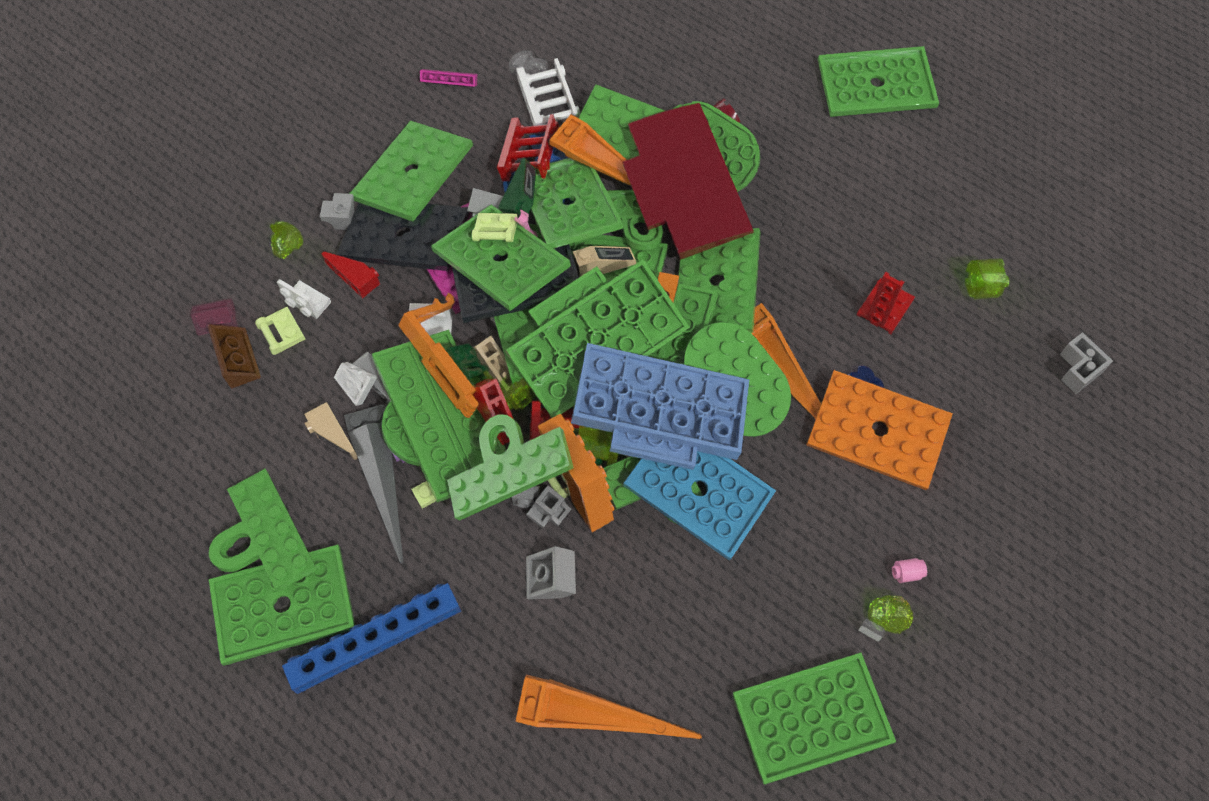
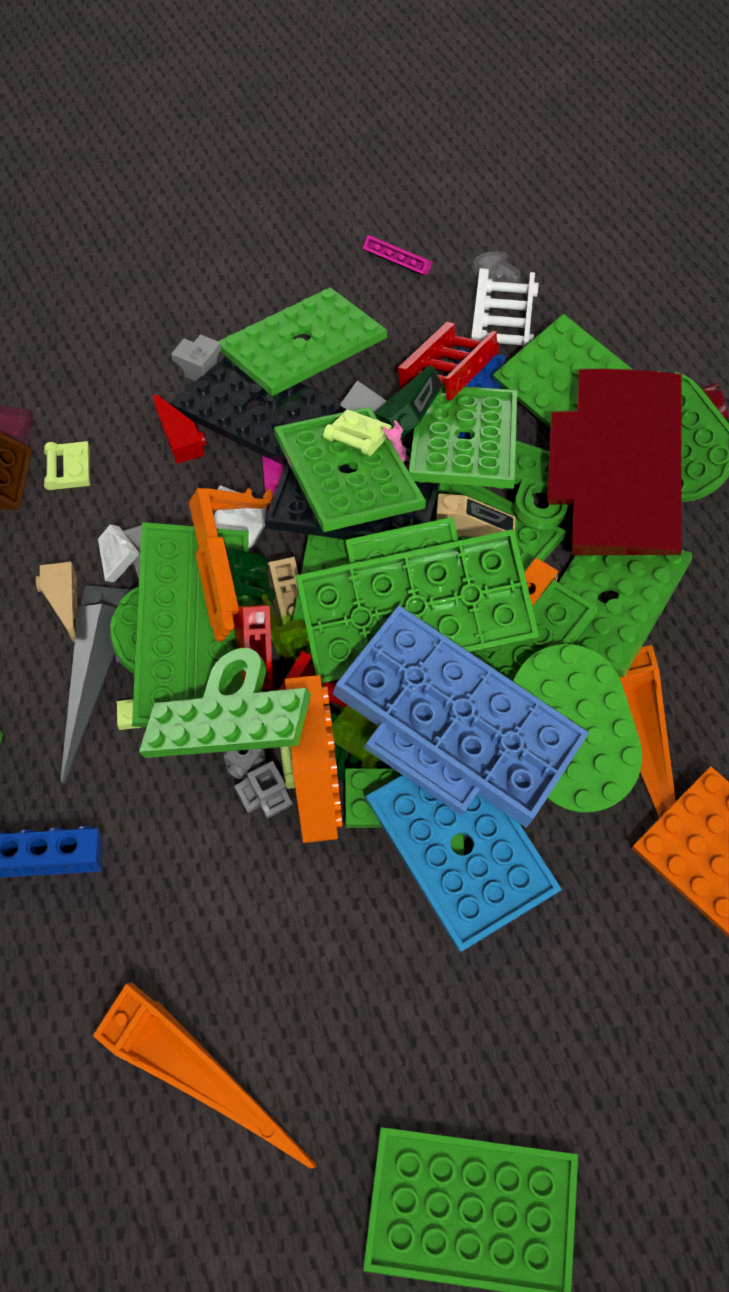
camera: 25 degrees right, 5 degrees down
(285, 239) = (124, 366): clear neon green hair -> none
(305, 298) = (111, 437): white bracket -> none
(551, 574) = (228, 872): light grey slope -> none
(589, 148) = (518, 382): orange plate -> none
(872, 629) = (607, 1130): tile -> none
(895, 614) = (644, 1121): clear neon green hair -> none
(909, 570) = (697, 1073): bright pink brick -> none

